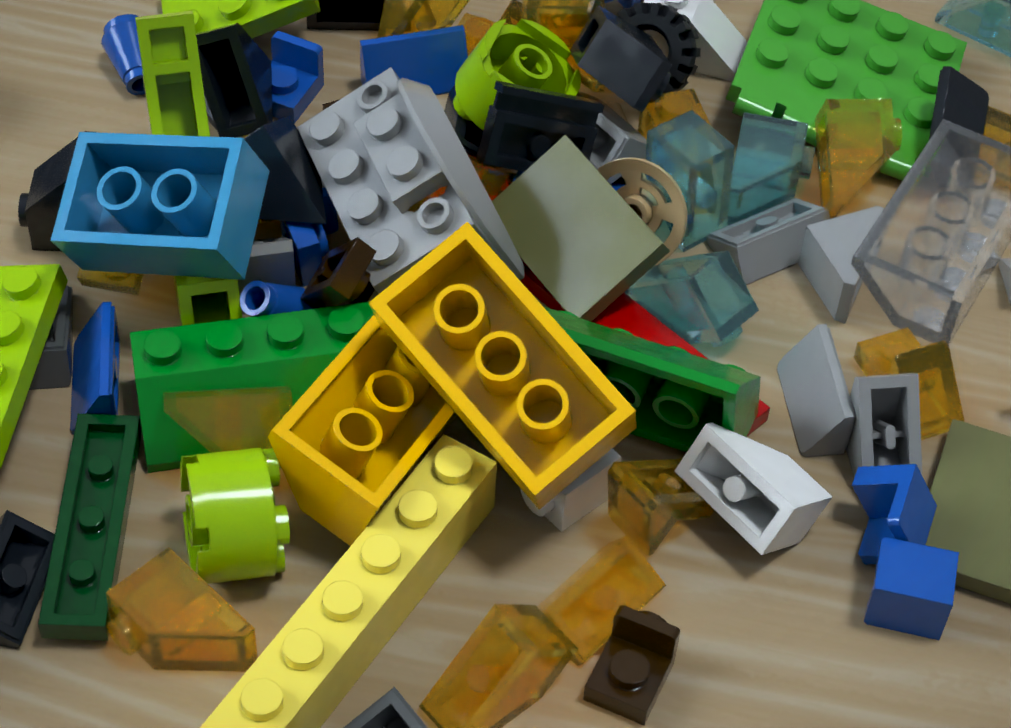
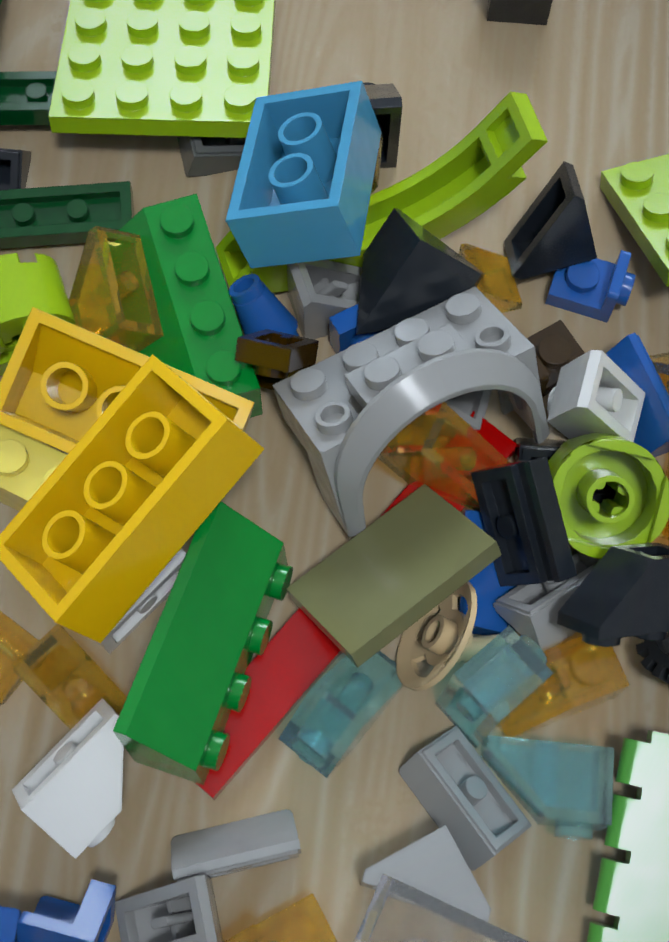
camera: 85 degrees right, 20 degrees up
(96, 366) = (212, 190): blue slope -> none
(123, 50) = (593, 139): blue cone -> none
(430, 59) = (595, 398): none -> white slope
(853, 147) = (579, 882): clear yellow slope -> none

